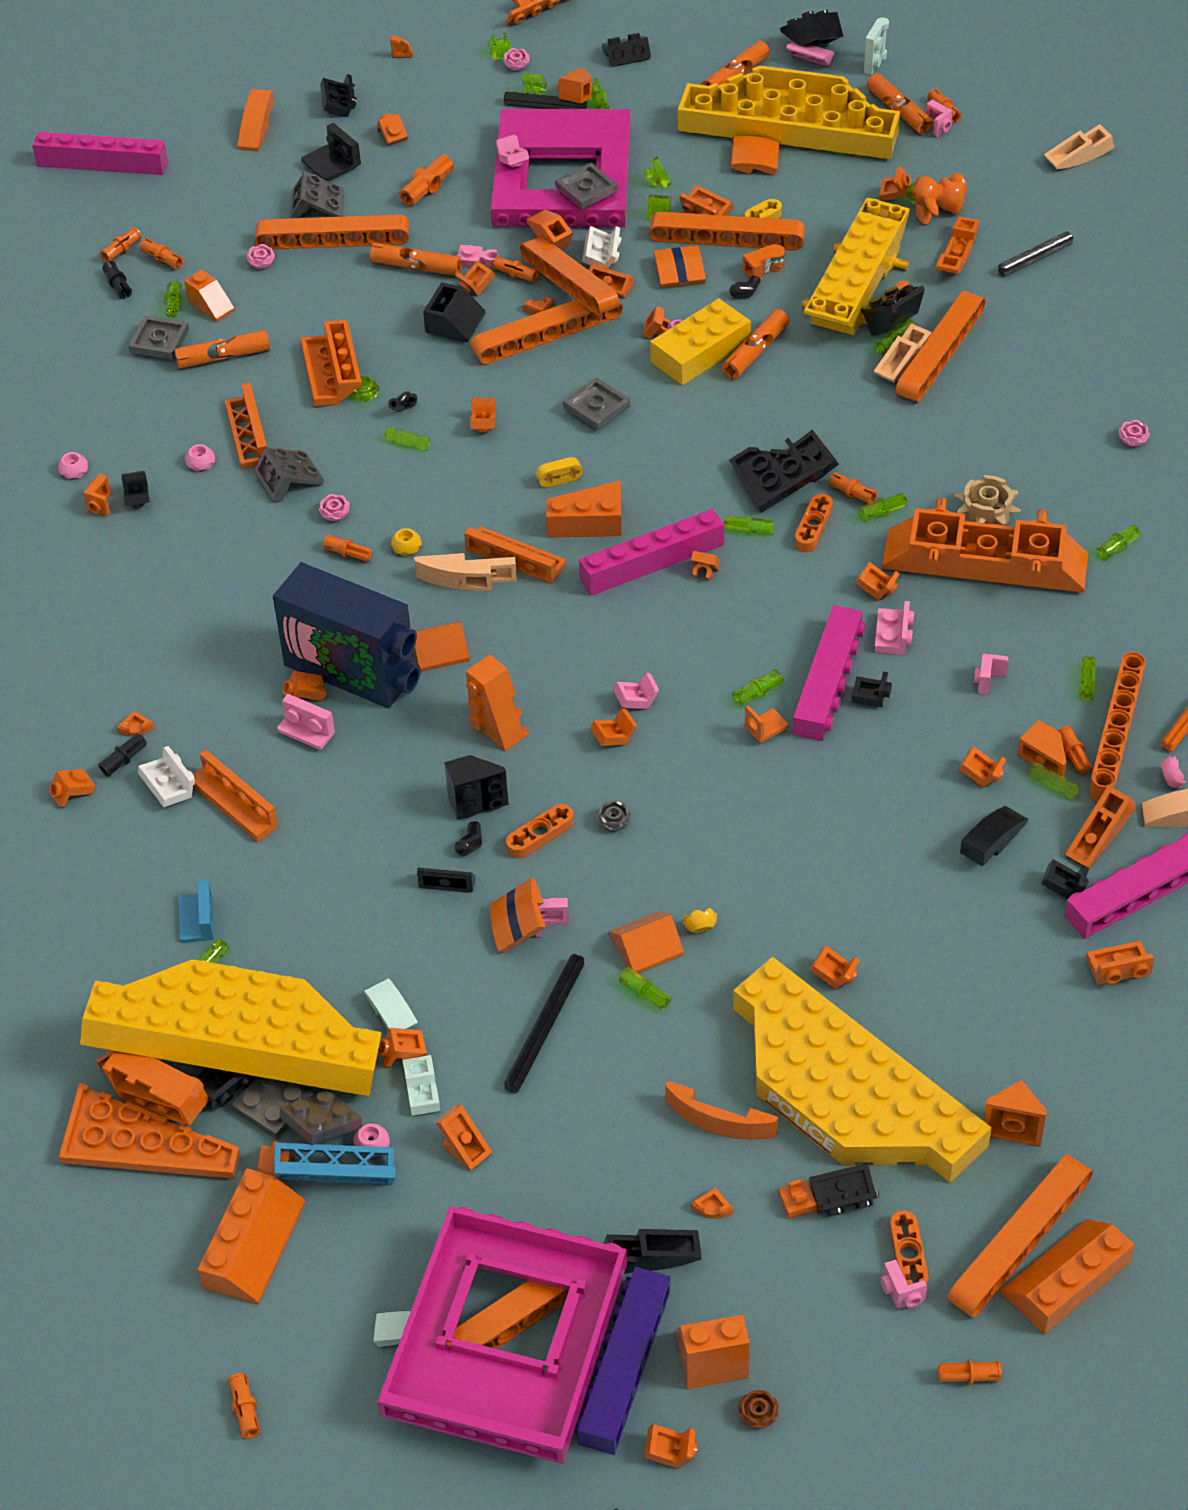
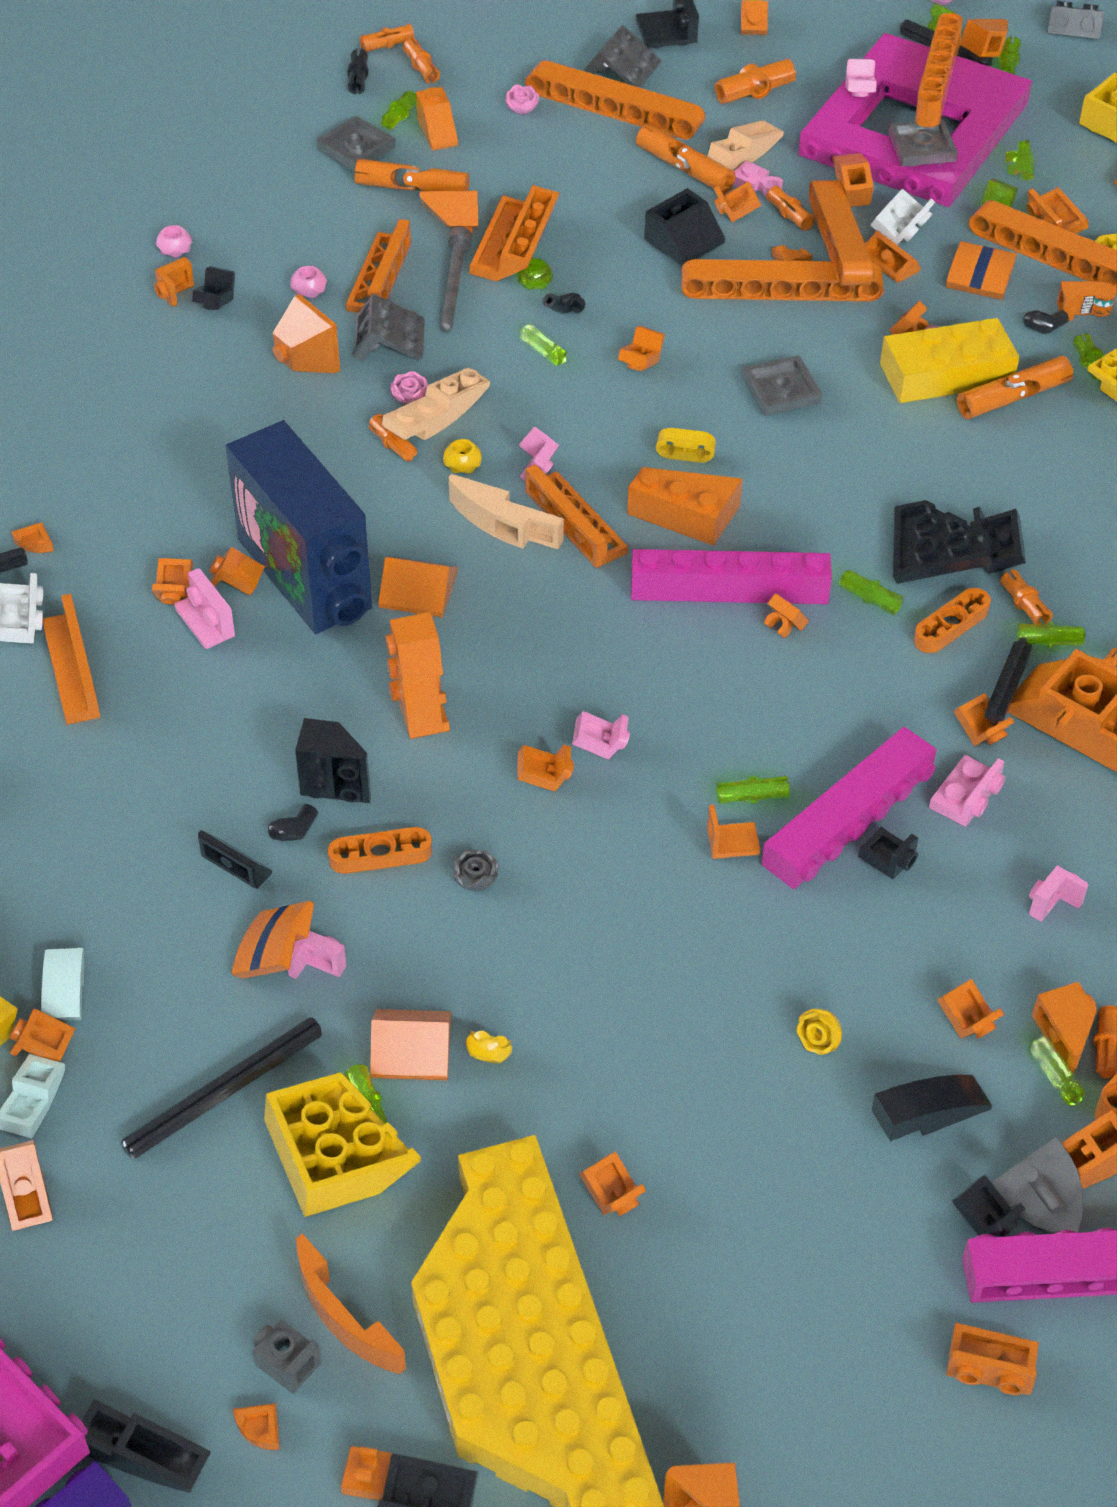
camera: 25 degrees right, 0 degrees up
(238, 500) = (306, 339): none -> orange slope
(265, 712) = (172, 580): none -> orange bracket
(273, 362) = (452, 207): none -> orange slope
(292, 385) = (459, 242): none -> flat silver piece
(366, 511) = (440, 407): none -> light nougat slope
(452, 232) = (745, 144): none -> light nougat slope
(463, 516) = (540, 448): none -> bright pink bracket
(565, 125) = (938, 70): none -> orange beam
(645, 1021) = (334, 1143): none -> yellow wedge
(702, 1157) = (289, 1366): none -> dark grey brick
(792, 302) = (1088, 351): none -> clear neon green axle
(878, 548) = (1008, 681): none -> black axle
(896, 826) = (810, 1035): none -> yellow plate
(1091, 848) = (1046, 1187): none -> flat silver shield

